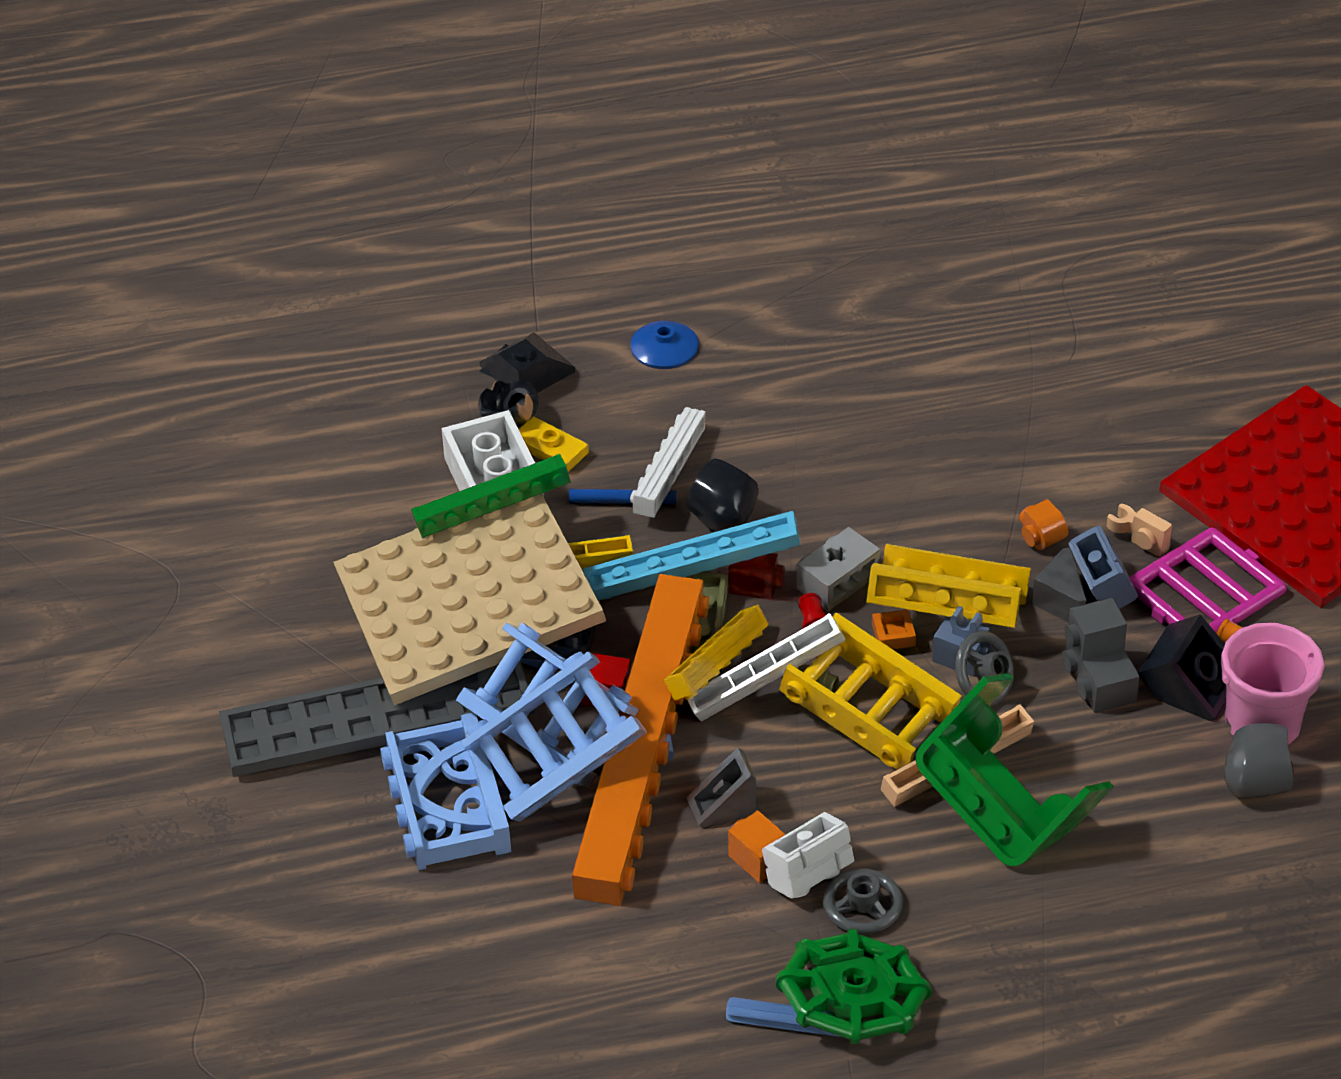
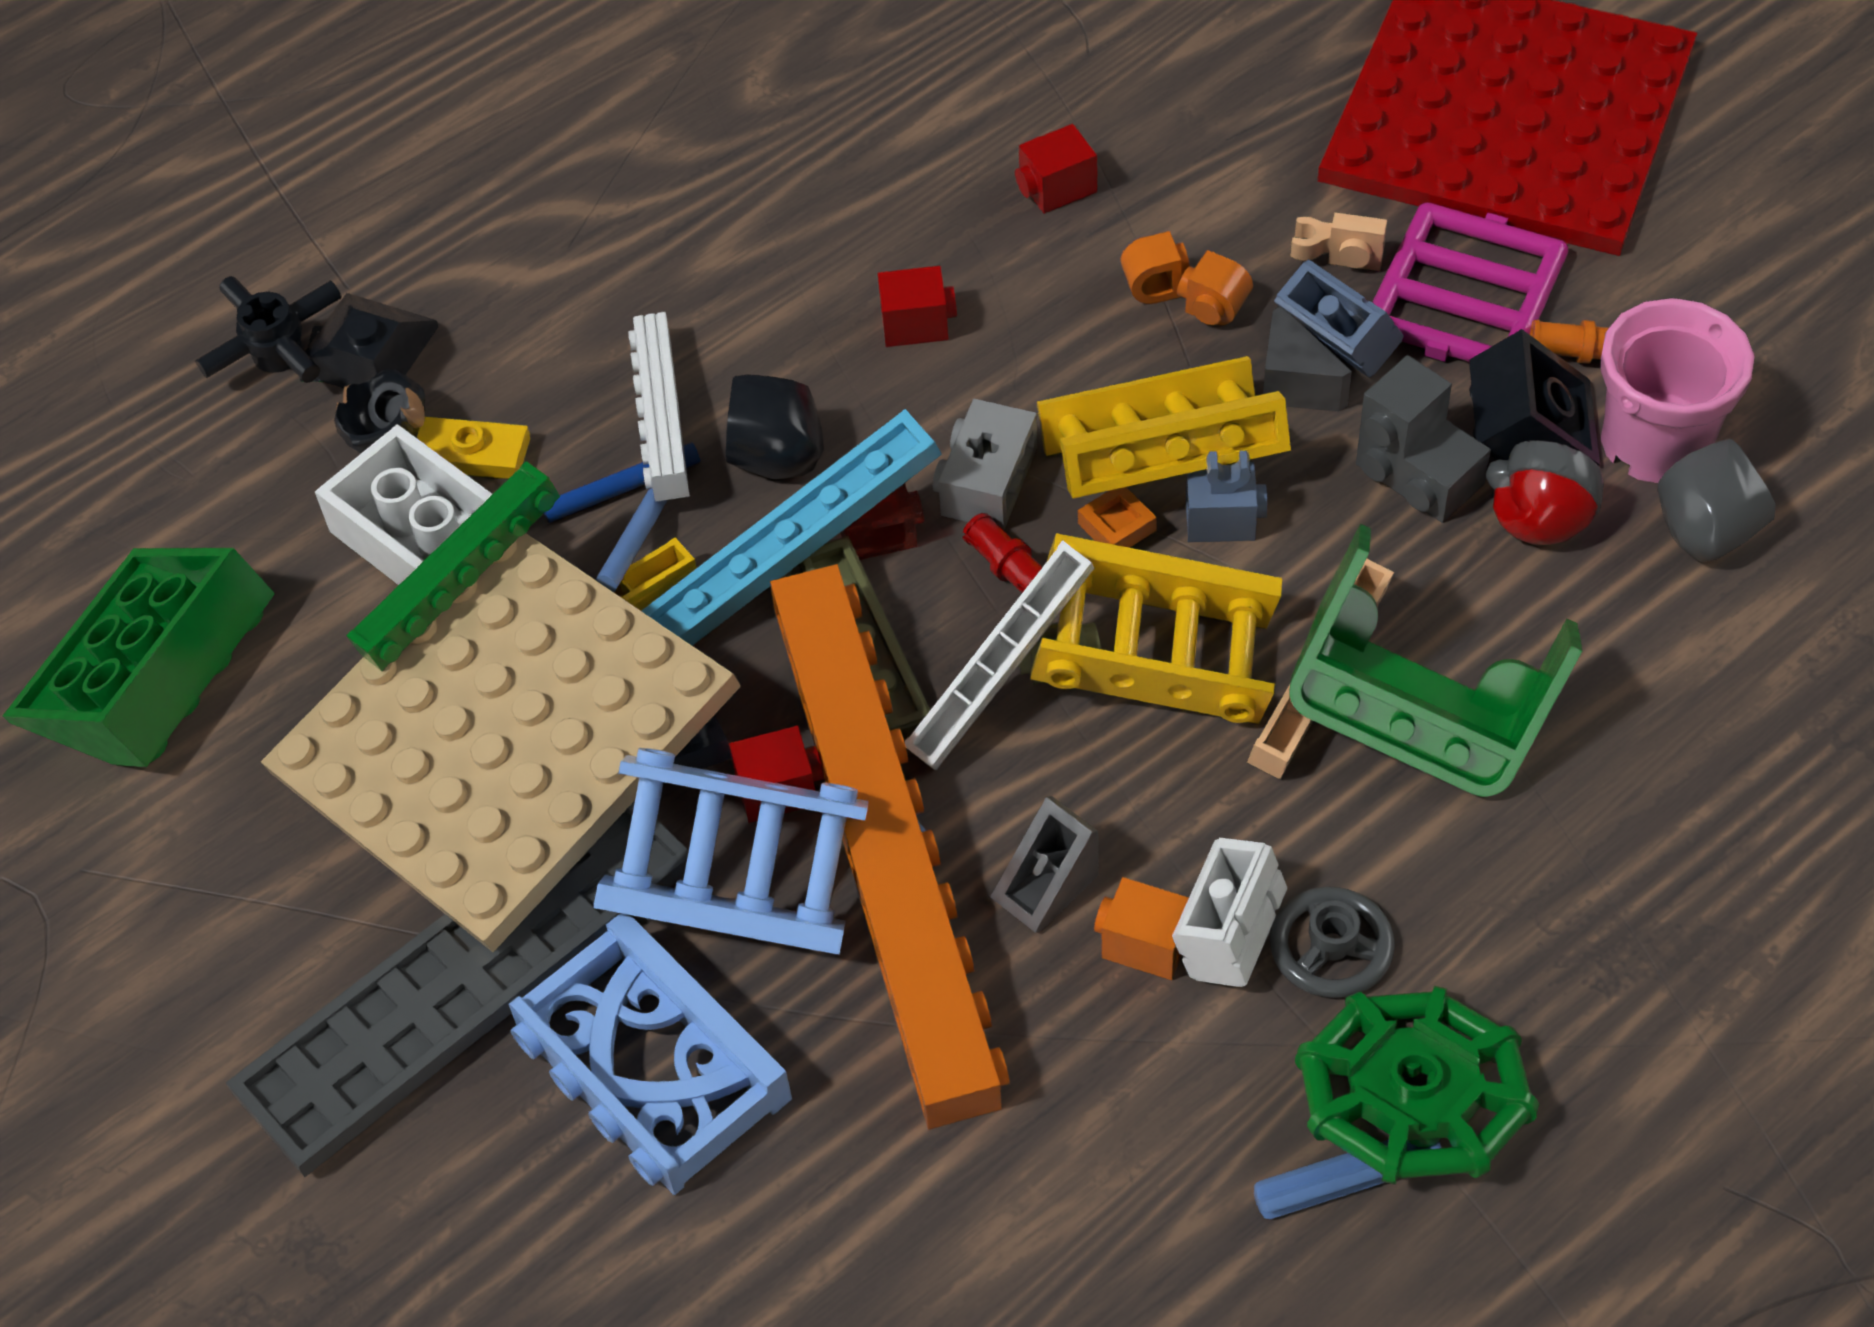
camera: 25 degrees left, 10 degrees up
(306, 481) = (143, 653): none -> green slope
(474, 334) = (269, 330): none -> black bar
(588, 753) = (808, 957): light blue fence -> none
(602, 527) = (630, 541): none -> medium blue bar
(664, 344) = (540, 239): blue dish -> none
(716, 653) = (913, 665): yellow piece -> none
(854, 465) = (915, 306): none -> red brick
(984, 665) = (1292, 524): dark grey piece -> none
(994, 420) = (1057, 168): none -> red brick
(1013, 497) = (1154, 267): none -> orange plate
(1159, 716) = (1545, 492): none -> red piece

